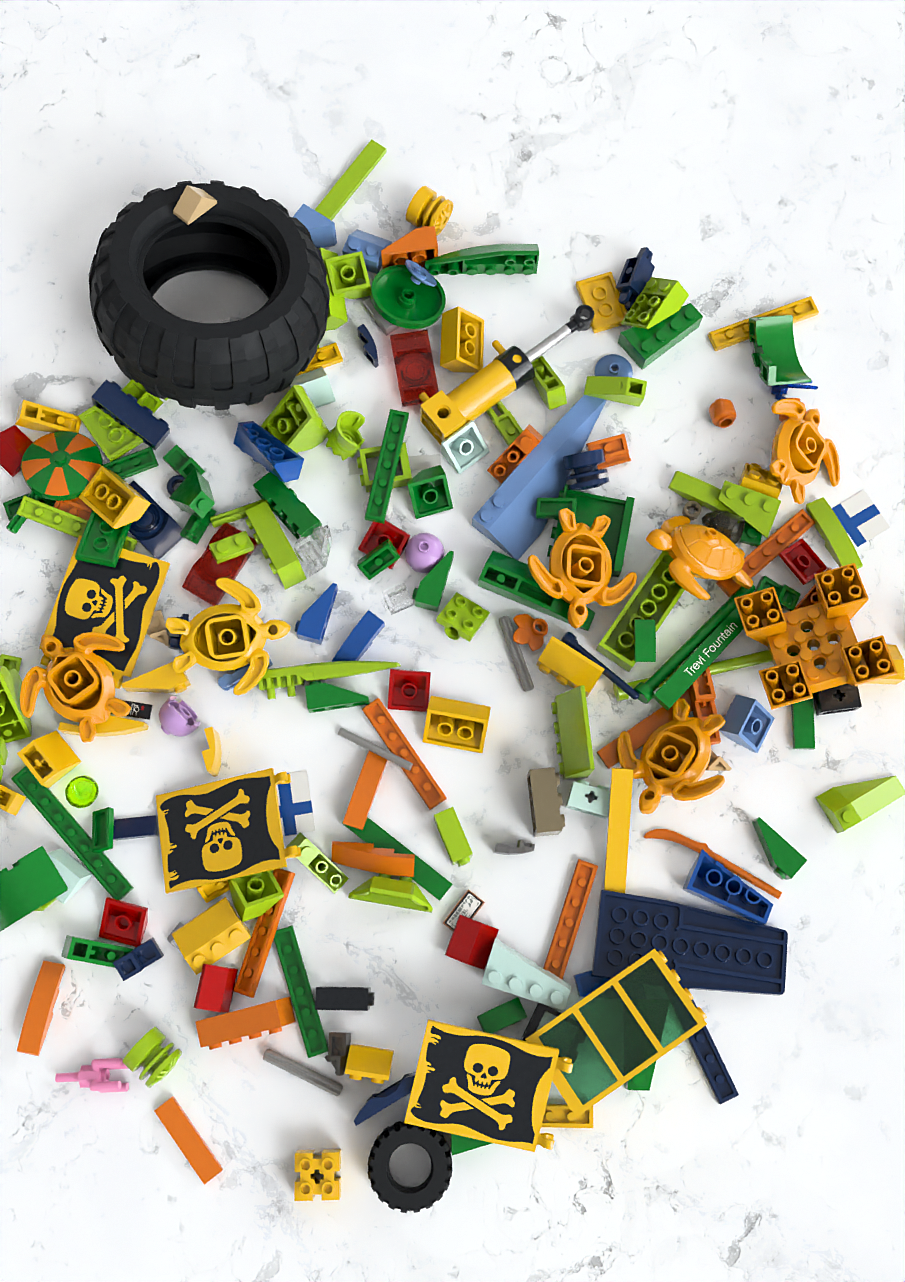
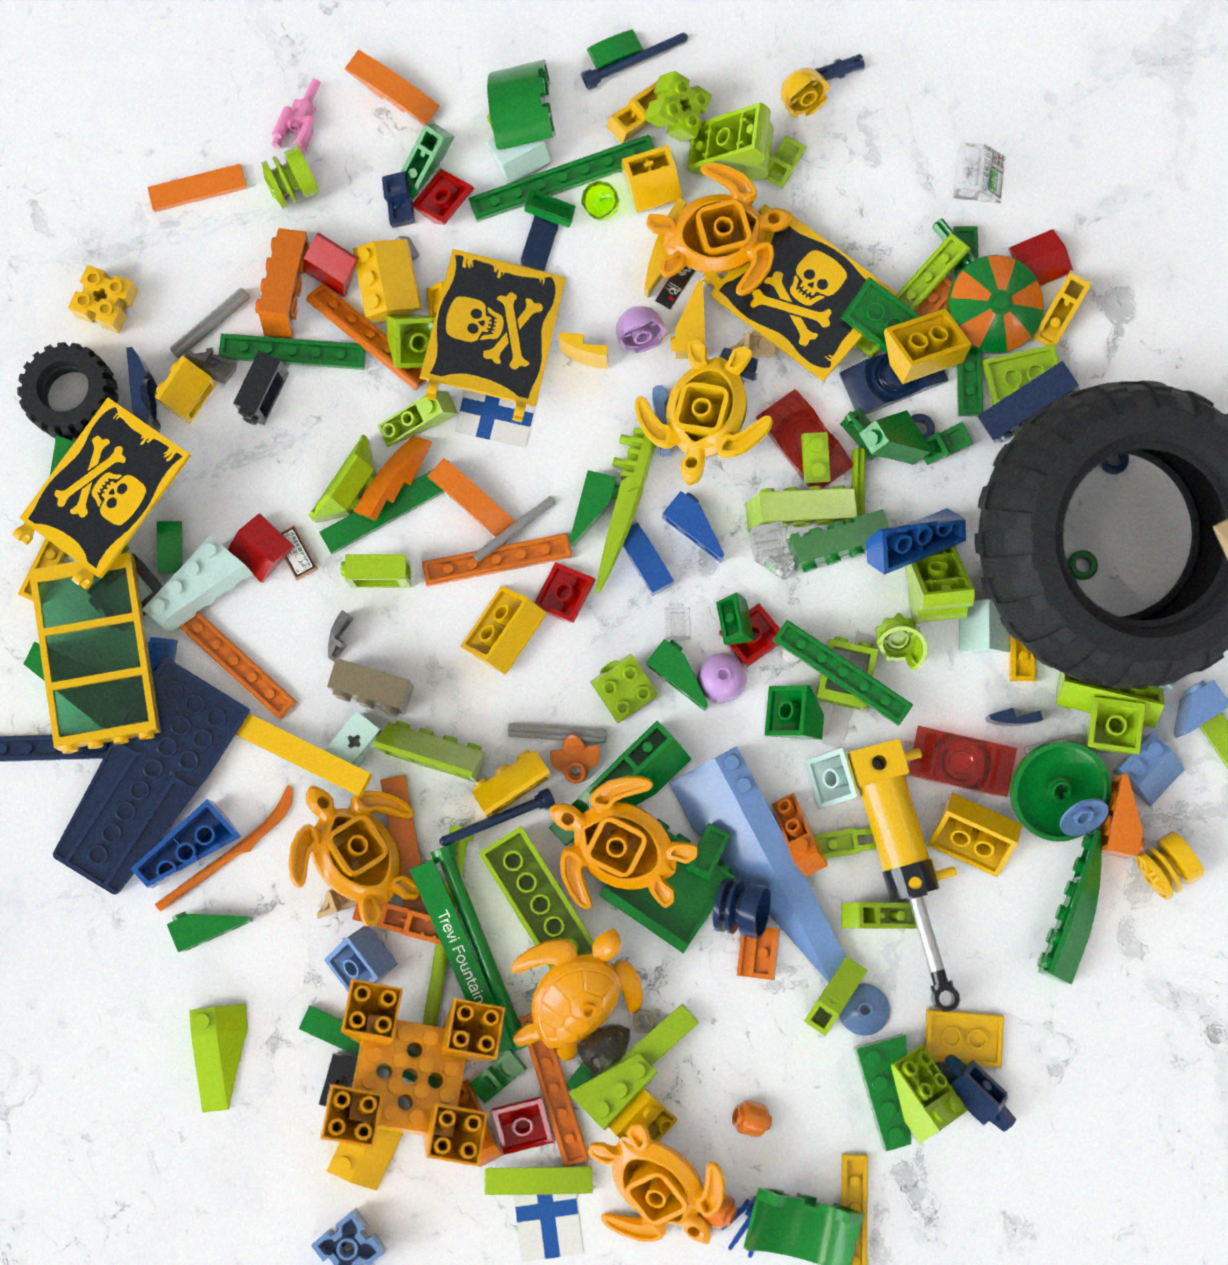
camera: 120 degrees right, 5 degrees up
(644, 640) = (500, 878): green slope -> none

